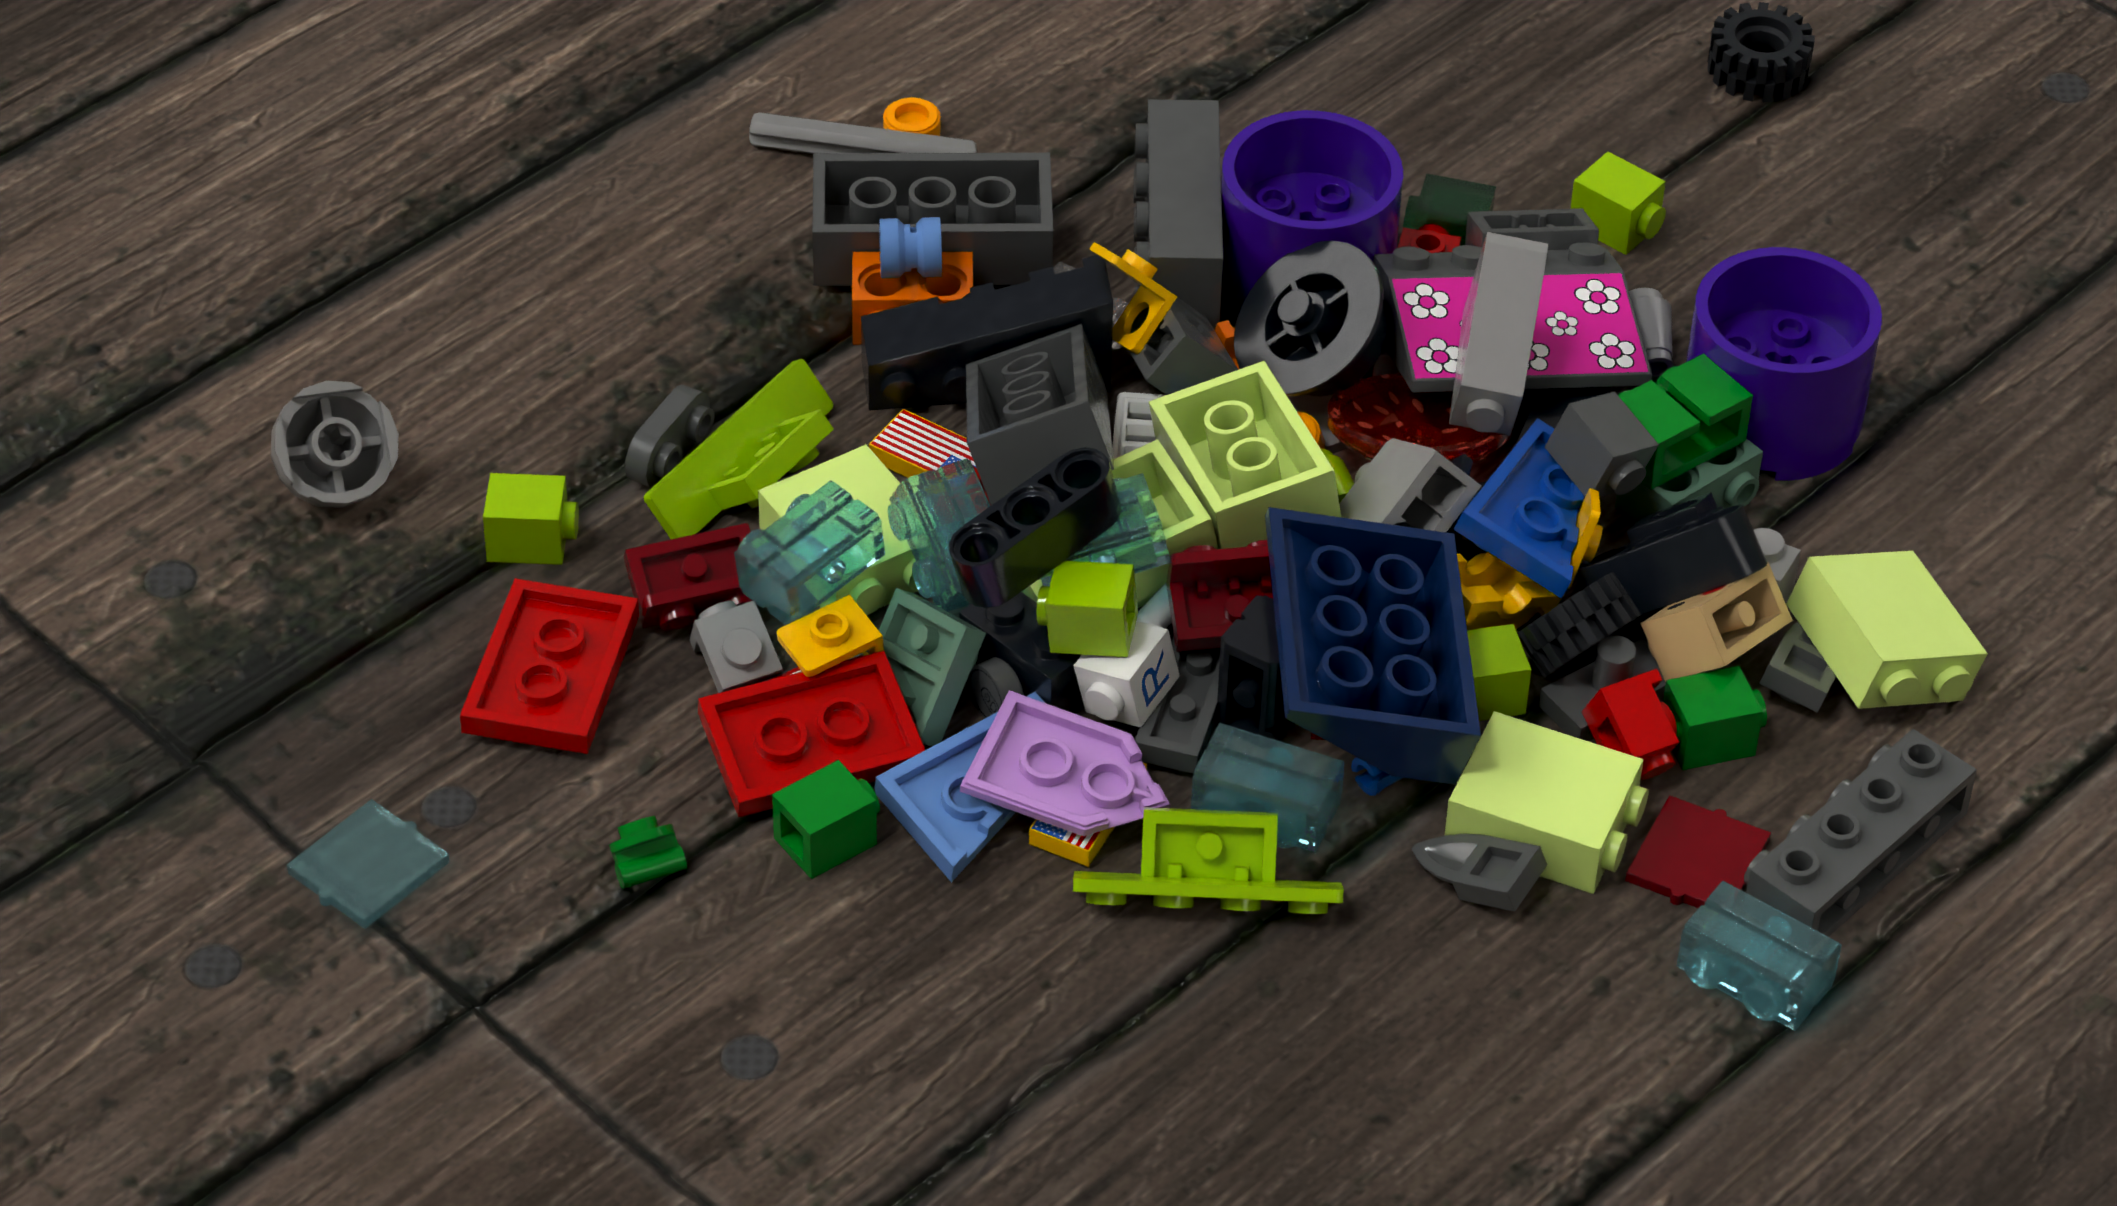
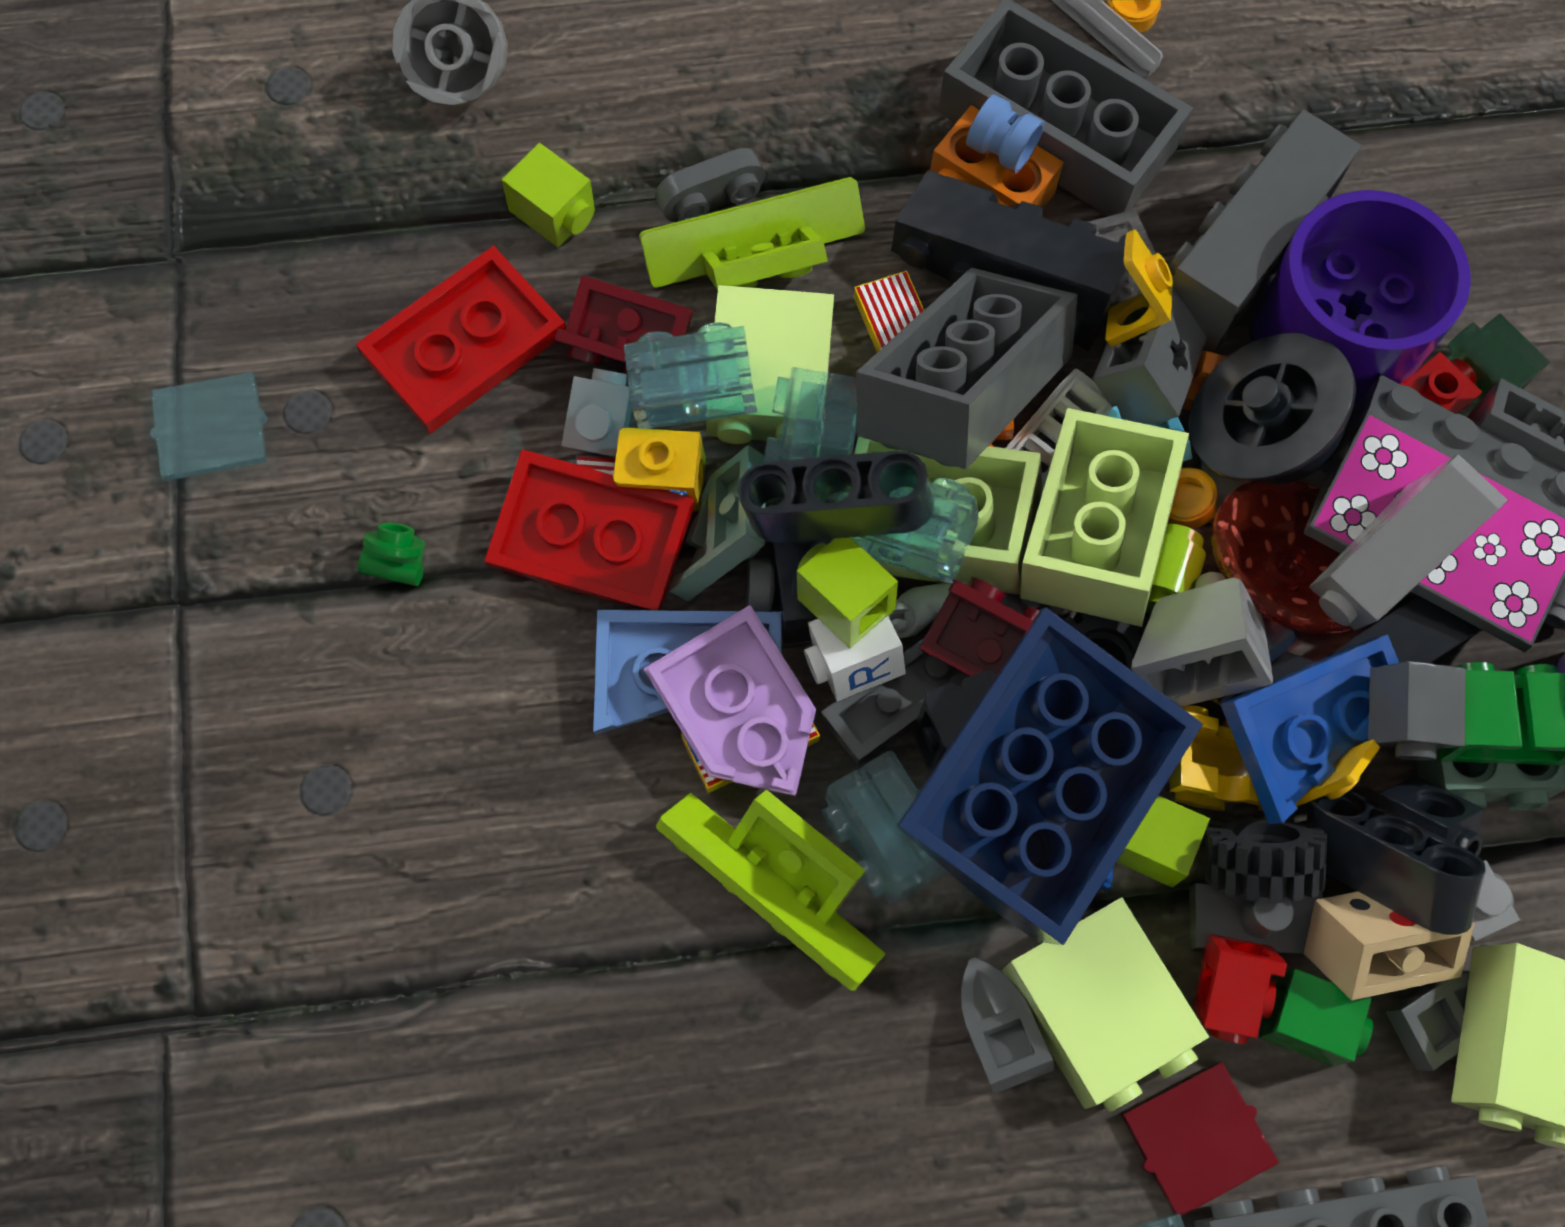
camera: 35 degrees right, 25 degrees up
(825, 818) = (537, 619): green brick -> none

